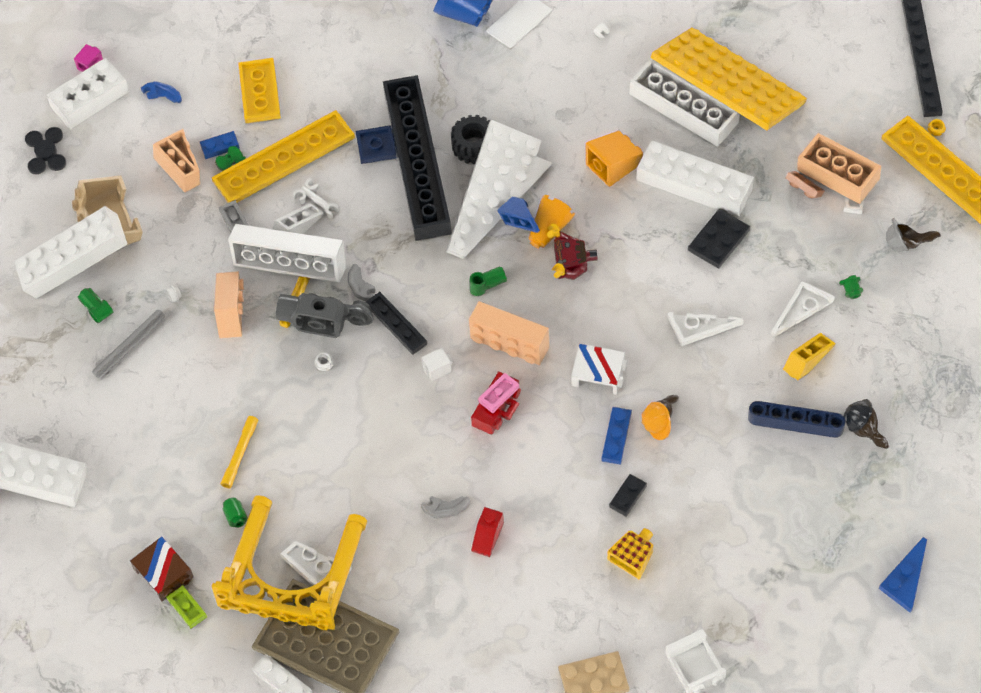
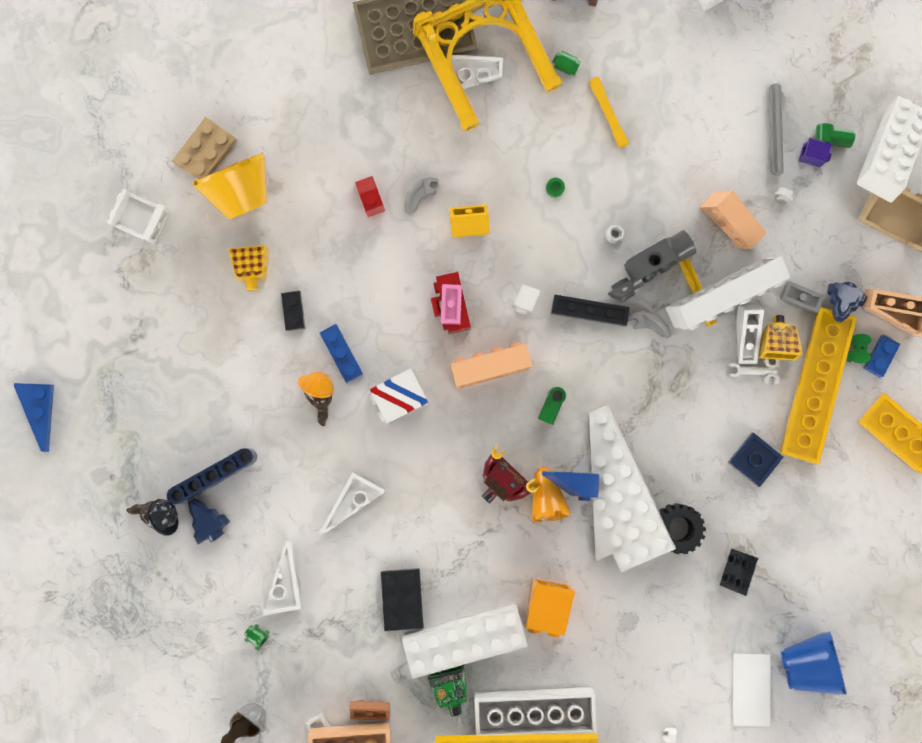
camera: 135 degrees right, 25 degrees up
(121, 304) = (815, 152): none -> dark purple brick
(208, 192) = (845, 299): none -> dark blue rock
(280, 200) = (780, 341): none -> yellow torso
(335, 430) = (555, 187): none -> green tile
(417, 158) = (711, 472): black brick -> none
(426, 449) = (469, 221): none -> yellow brick
(458, 85) = (738, 572): none -> black hinge
(588, 614) = (236, 187): none -> yellow cone
(733, 155) = (449, 688): none -> torso
(807, 356) = (244, 542): yellow slope -> none
(828, 389) = (206, 522): none -> dark blue rock

